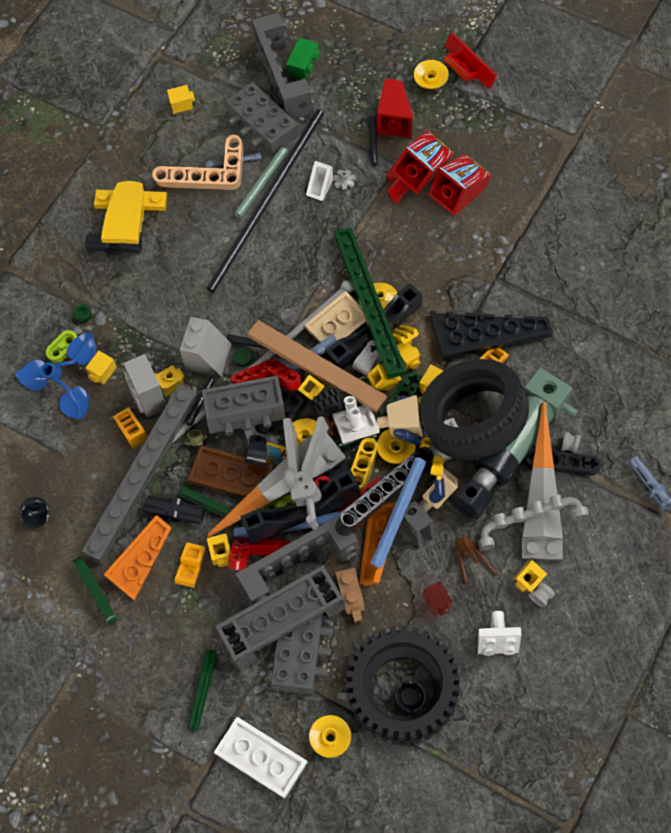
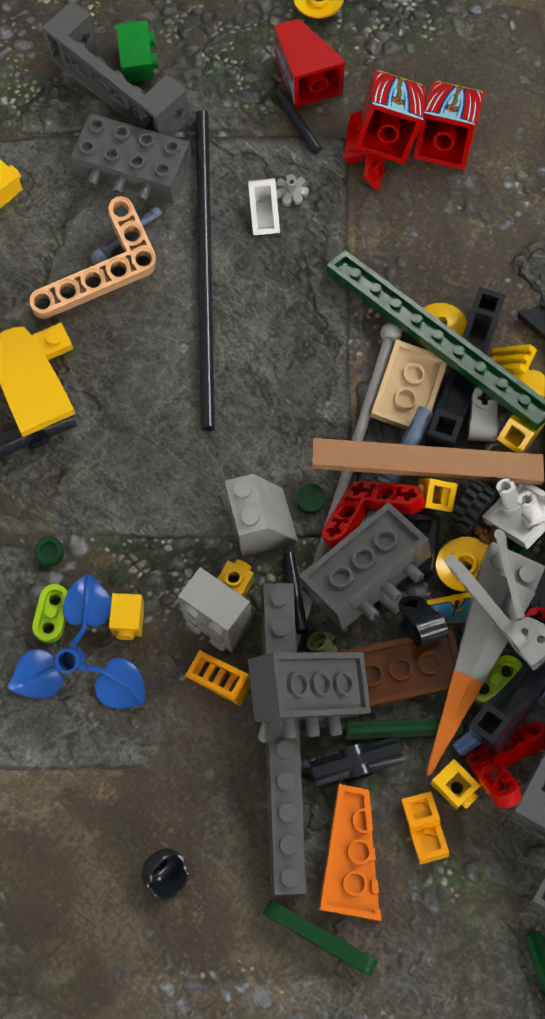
camera: 30 degrees left, 5 degrees up
(165, 450) = (309, 689): none -> dark grey piece
(243, 340) = (301, 475): black bar -> none
(262, 180) = (182, 247): sand green piece -> none

